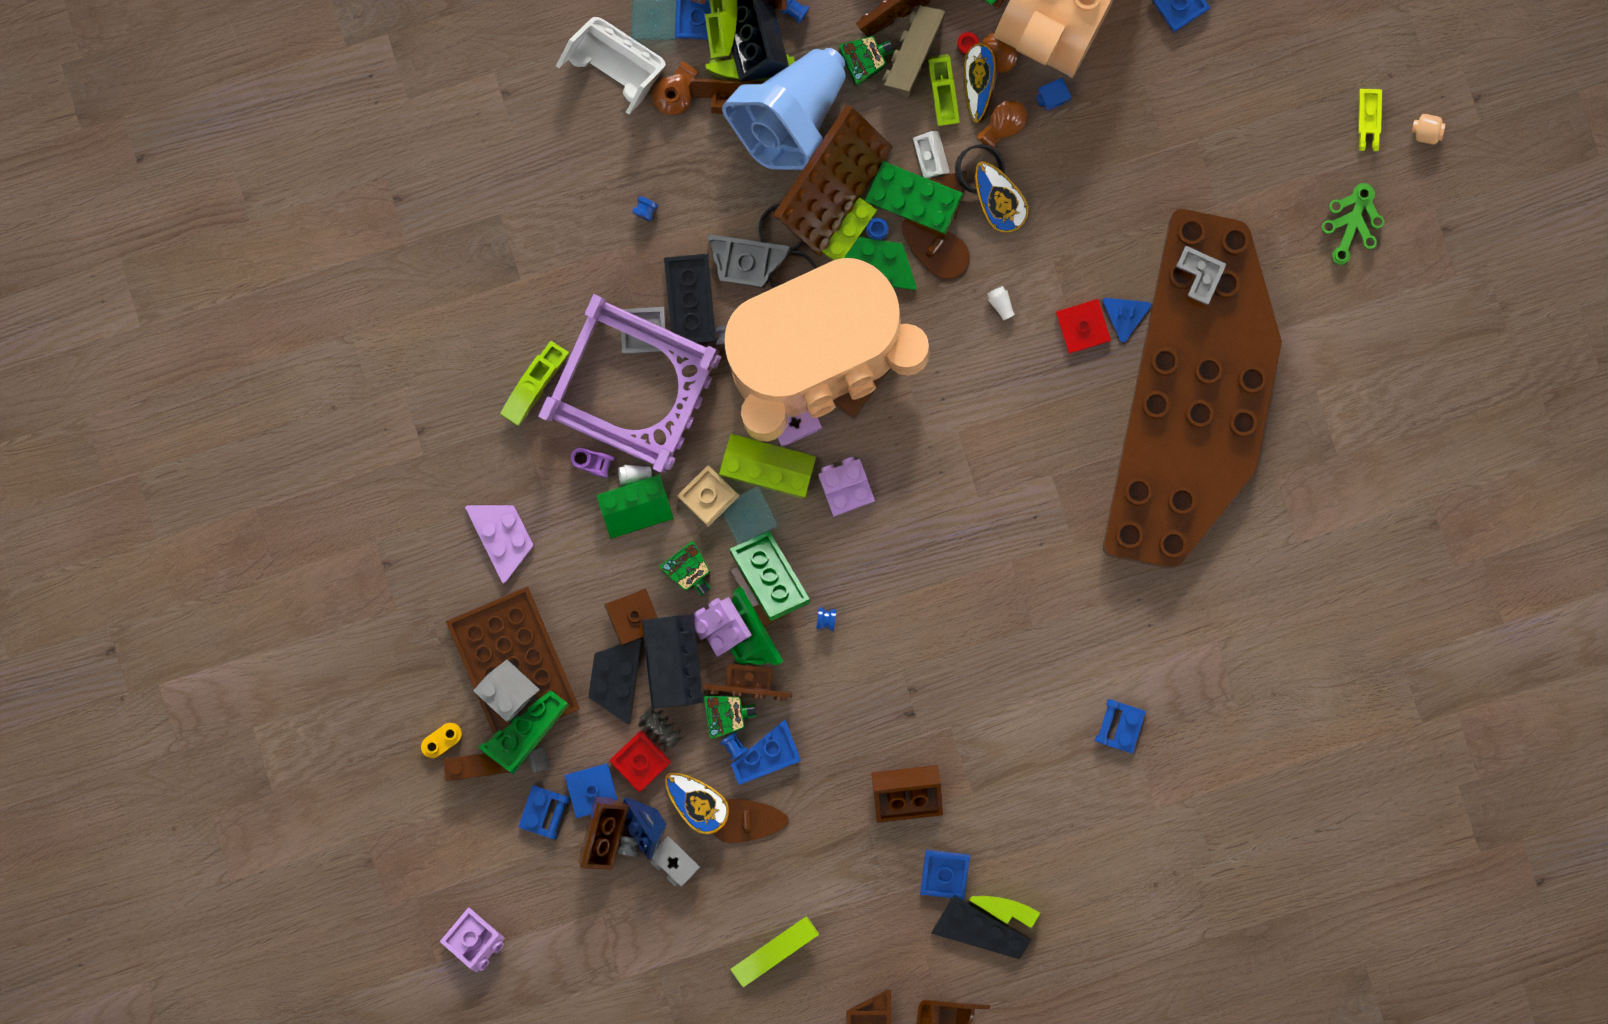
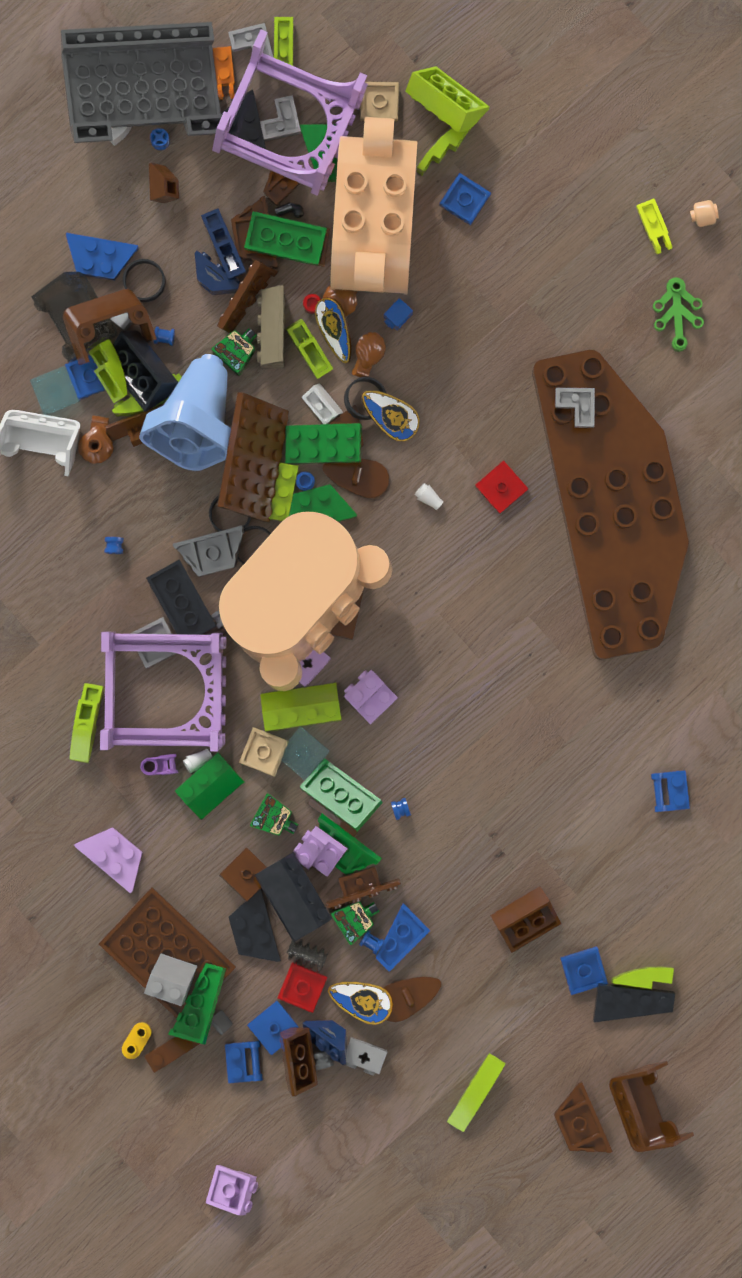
camera: 20 degrees left, 0 degrees up
(1125, 315) = (530, 463): blue piece -> none

